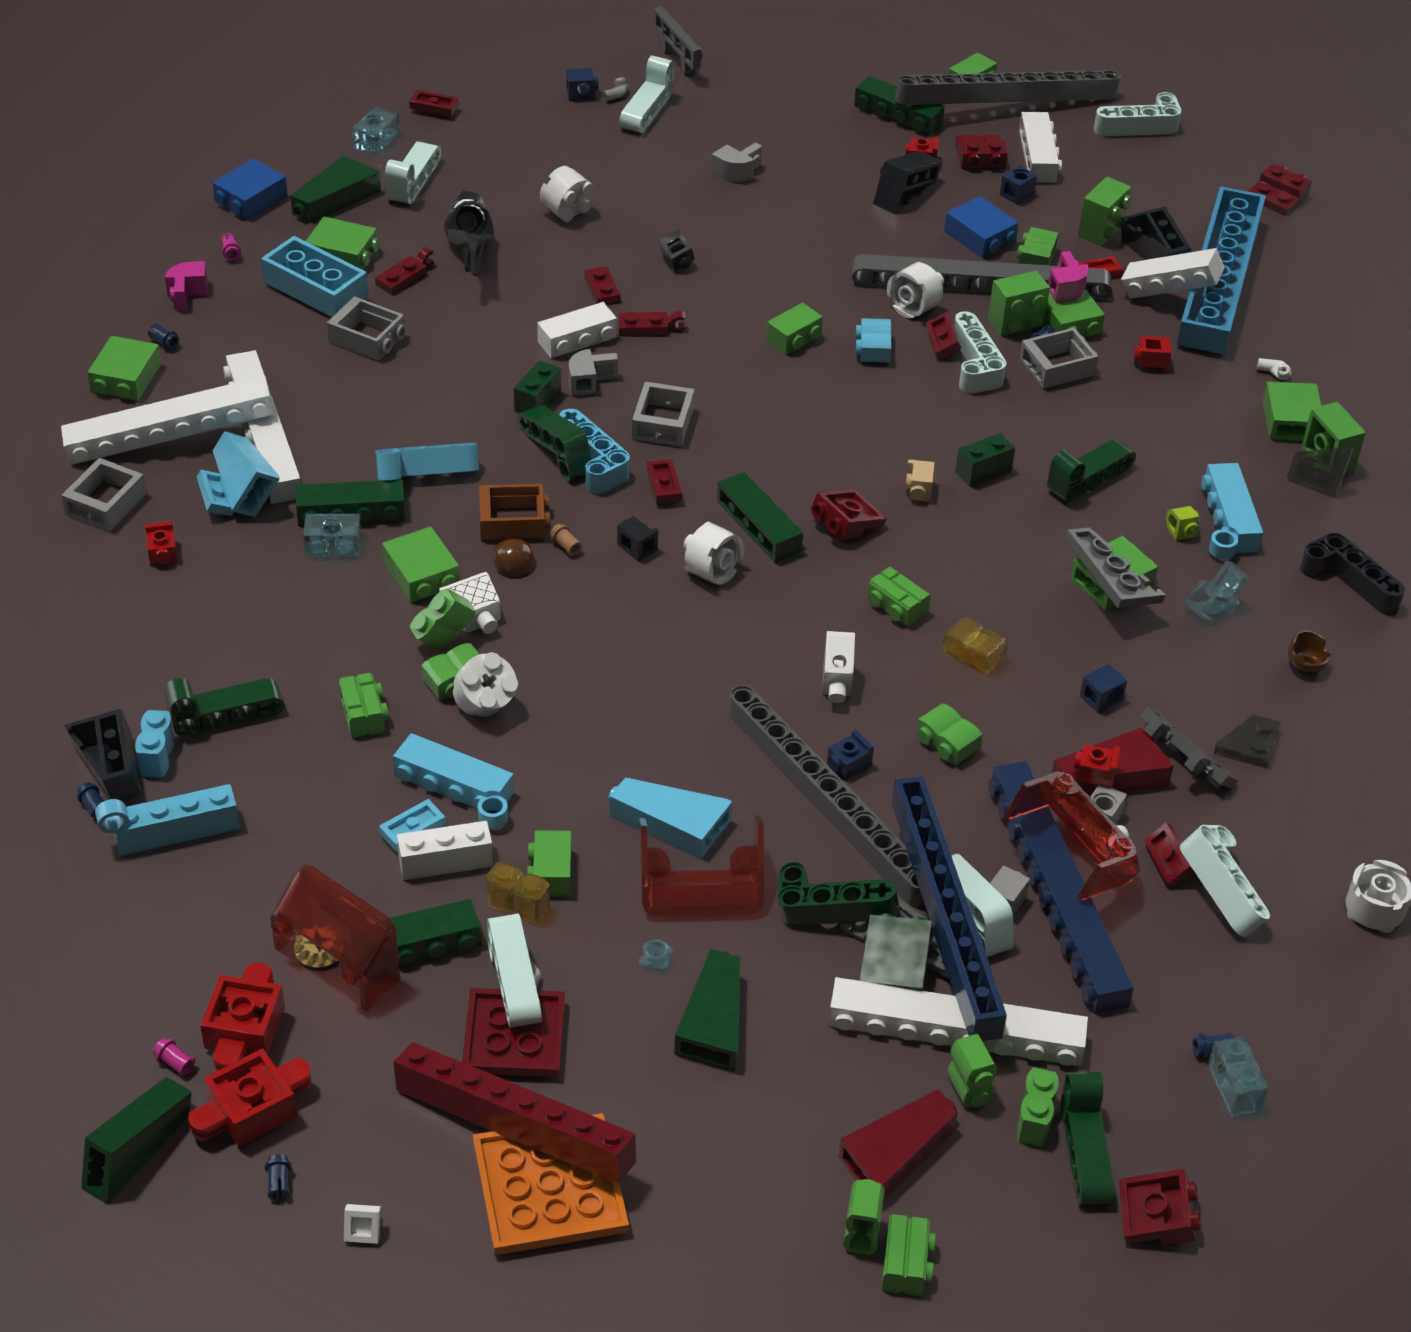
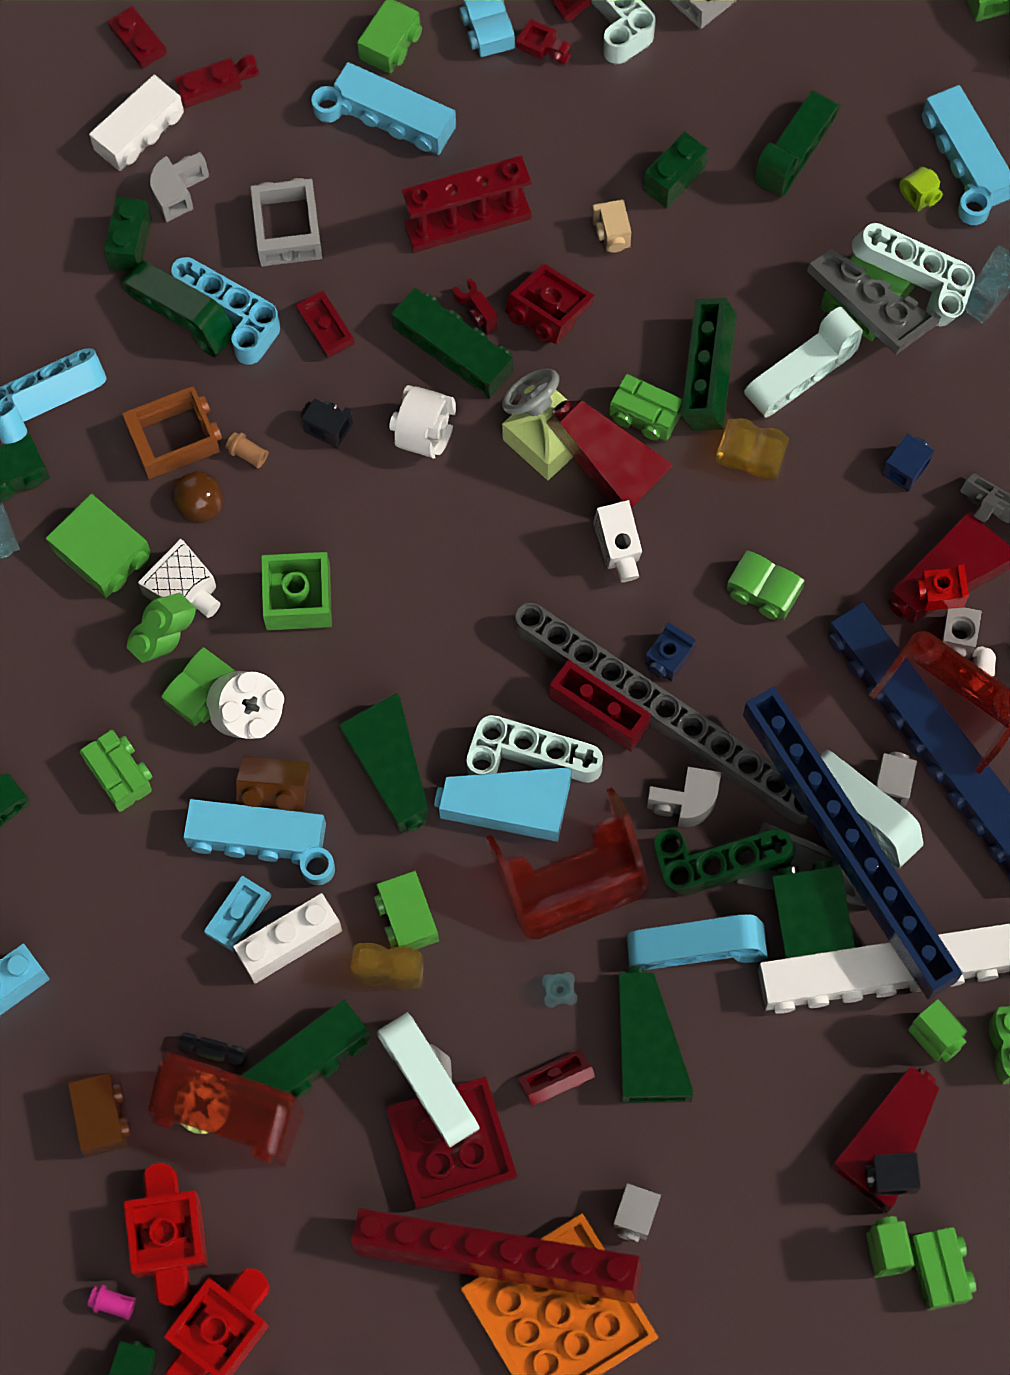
camera: 15 degrees left, 25 degrees up
(230, 920) = (99, 1114): none -> reddish brown brick
(483, 744) = (273, 783): none -> reddish brown brick
(561, 630) = (296, 591): none -> bright green brick
(583, 755) = (386, 756): none -> dark green slope
(611, 1014) = (556, 1077): none -> dark red plate
(652, 1127) = (636, 1213): none -> light grey brick
(689, 772) = (536, 755): none -> light aqua beam
(772, 368) = (388, 107): none -> medium azure hinge
(775, 769) = (599, 705): none -> dark red brick
(789, 501) = (481, 311): none -> dark red plate
(792, 948) = (698, 941): none -> medium azure beam
(805, 450) = (473, 218): none -> dark red fence
(812, 584) = (527, 426): none -> yellowish green piece
(824, 859) = (694, 803): none -> light grey brick
(852, 602) = (607, 453): none -> dark red slope
(888, 1154) = (893, 1174): none -> black brick
(911, 360) = (540, 39): none -> dark red plate
(961, 580) = (709, 364): none -> dark green brick
(1045, 604) = (787, 379): none -> light aqua beam
(1156, 554) = (878, 245): none -> light aqua beam

